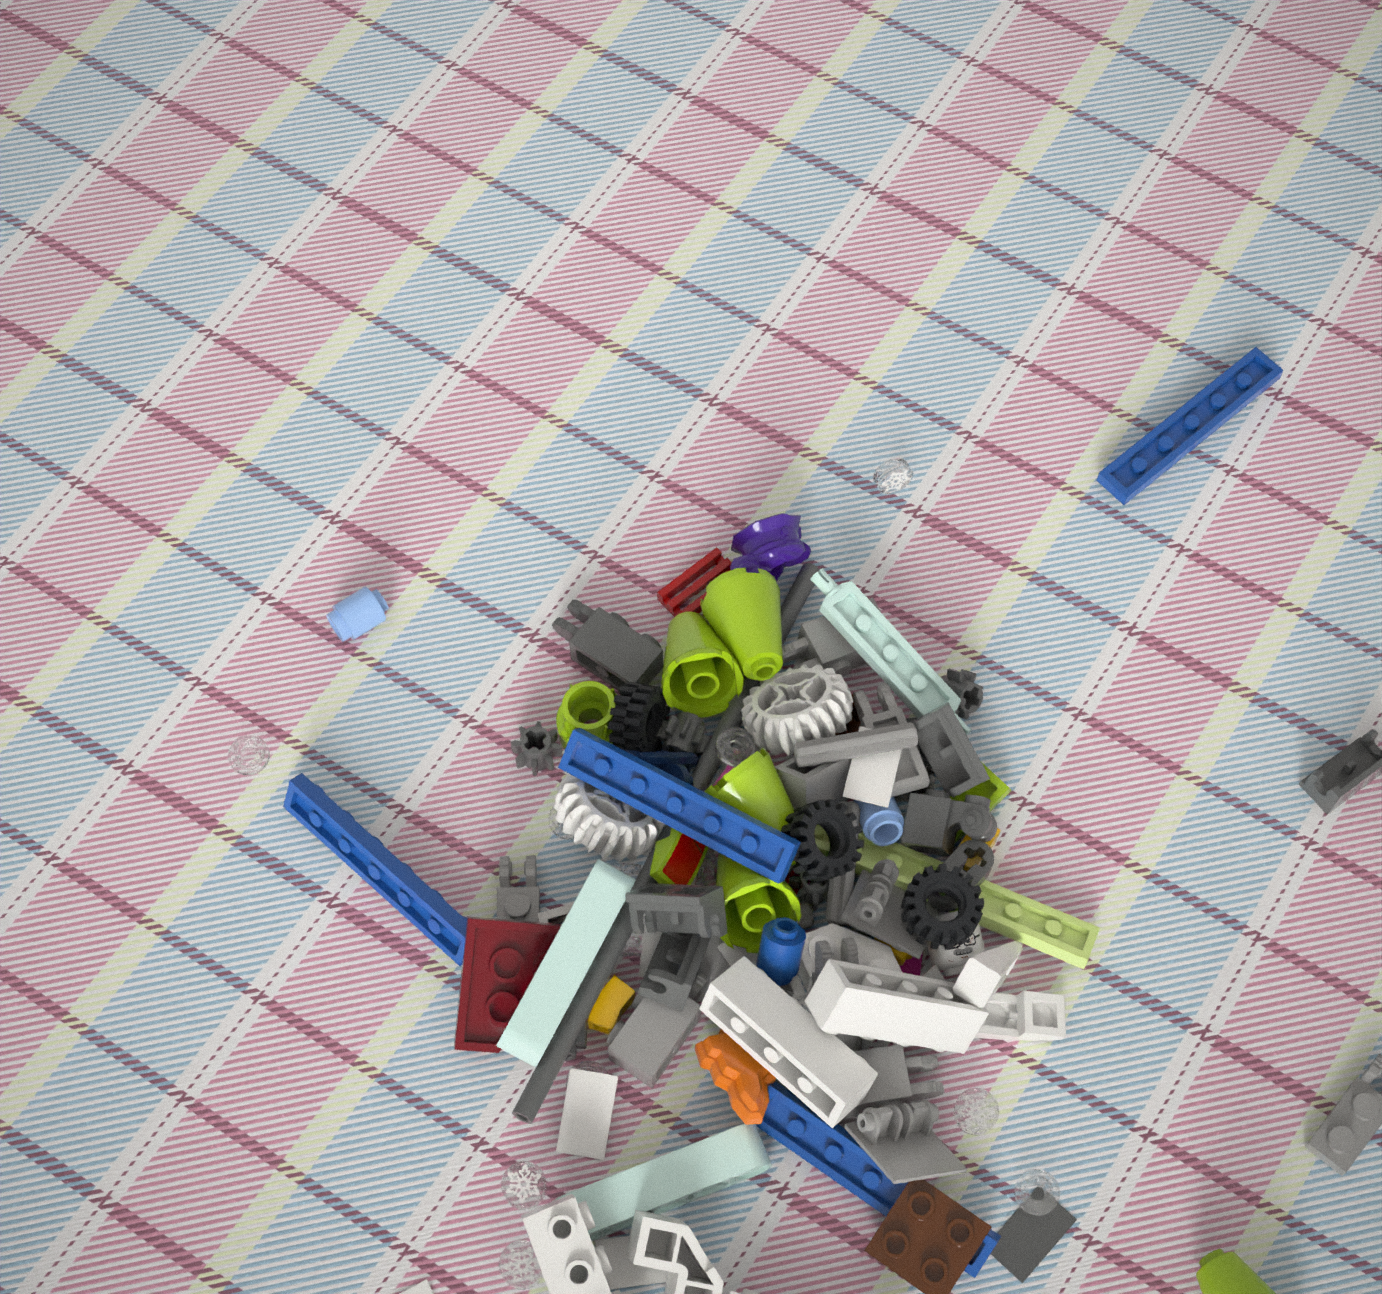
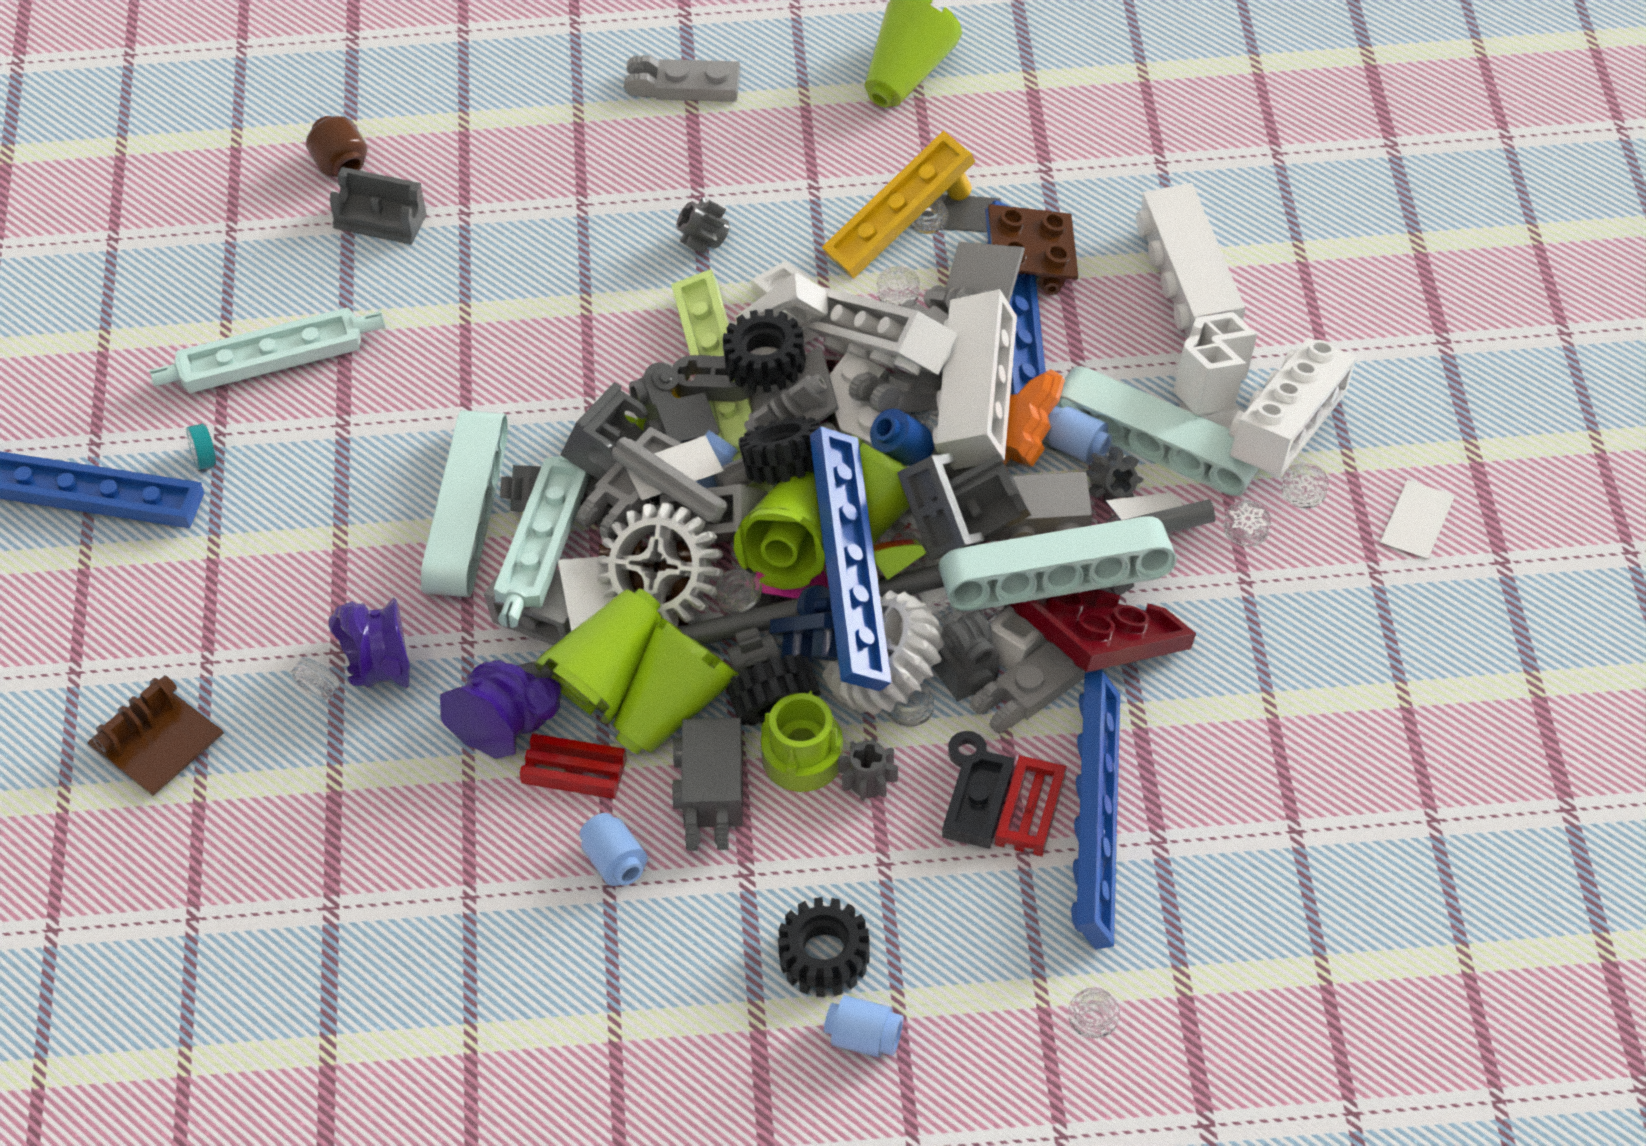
camera: 125 degrees left, 10 degrees down
(427, 613) = (827, 972): none -> black tyre
(445, 863) = (1022, 838): none -> red tile
(461, 805) = (978, 791): none -> black hinge
(563, 867) = (967, 656): none -> dark grey brick
(609, 561) = (612, 849): none -> light blue brick
(640, 1108) = (1123, 472): none -> dark grey gear
(704, 1117) = (1077, 434): none -> light blue brick
(813, 649) = (582, 589): none -> clear sticker
(884, 511) = (372, 643): none -> dark purple piece
(922, 370) = (154, 736): none -> reddish brown hinge
(982, 650) = (464, 504): none -> light aqua beam
(1053, 1167) = (930, 174): none -> yellow piece
(1149, 994) = (702, 225): none -> dark grey gear
(1166, 518) = (201, 446): none -> teal tile
(1238, 613) = (267, 350): none -> light aqua plate

